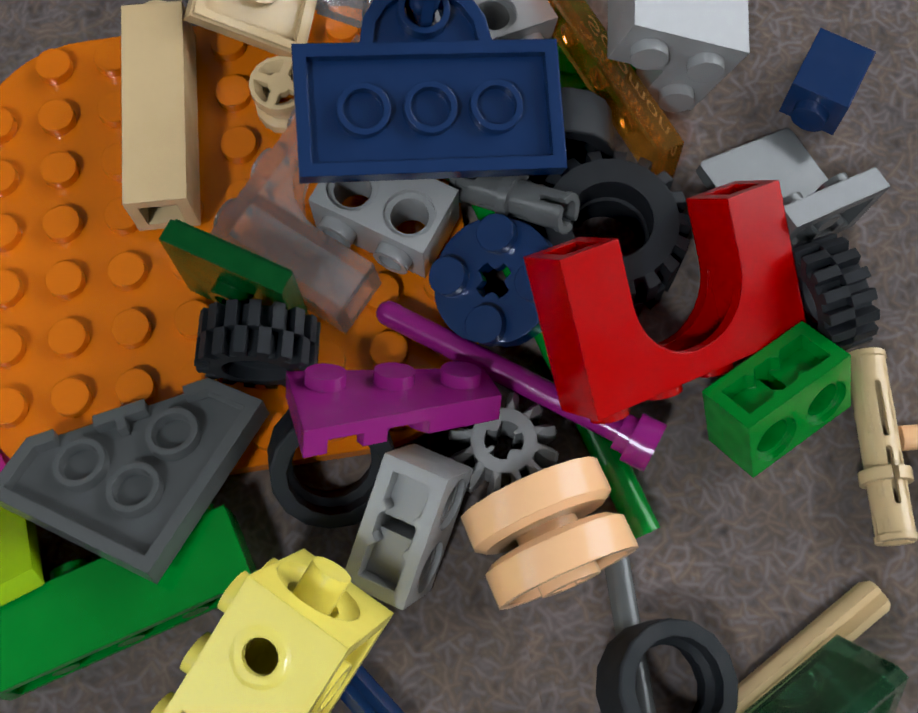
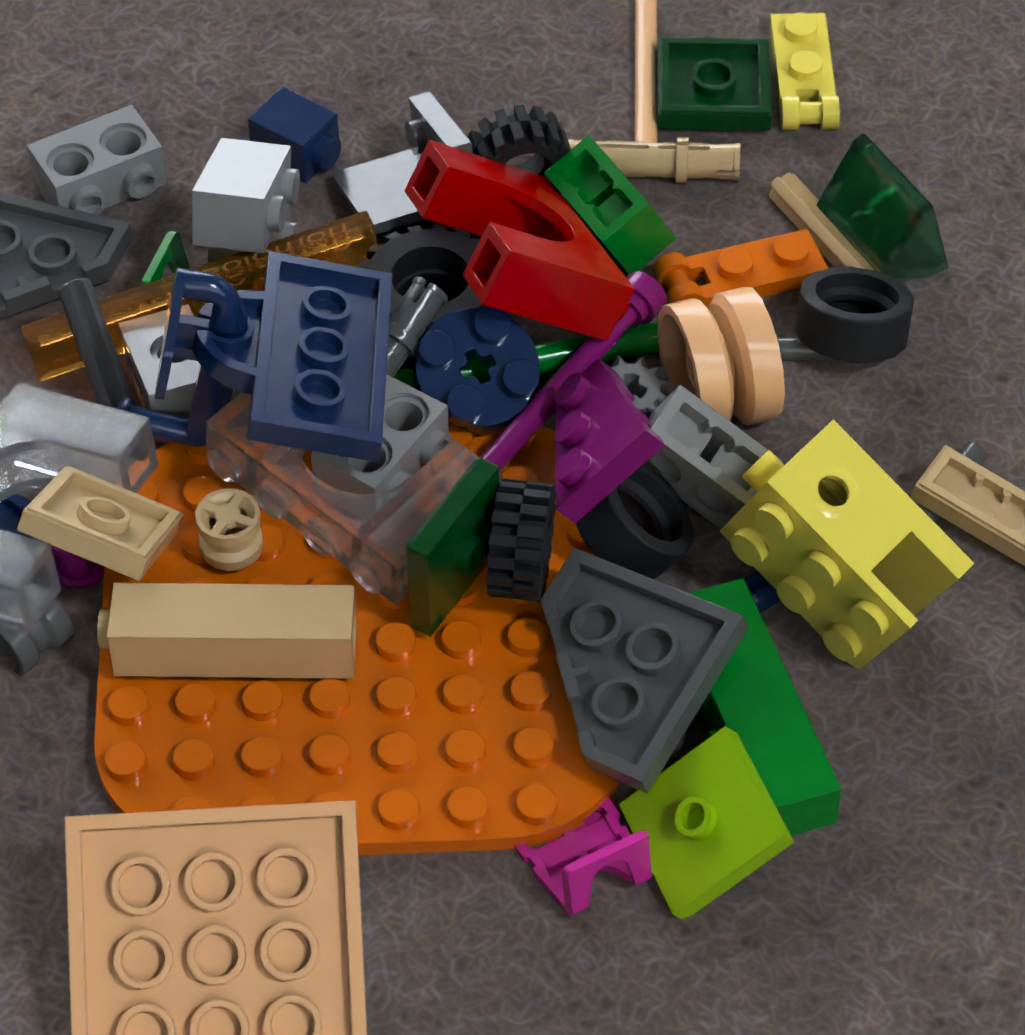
camera: 85 degrees left, 20 degrees down
(731, 559) = (765, 264): none -> orange plate

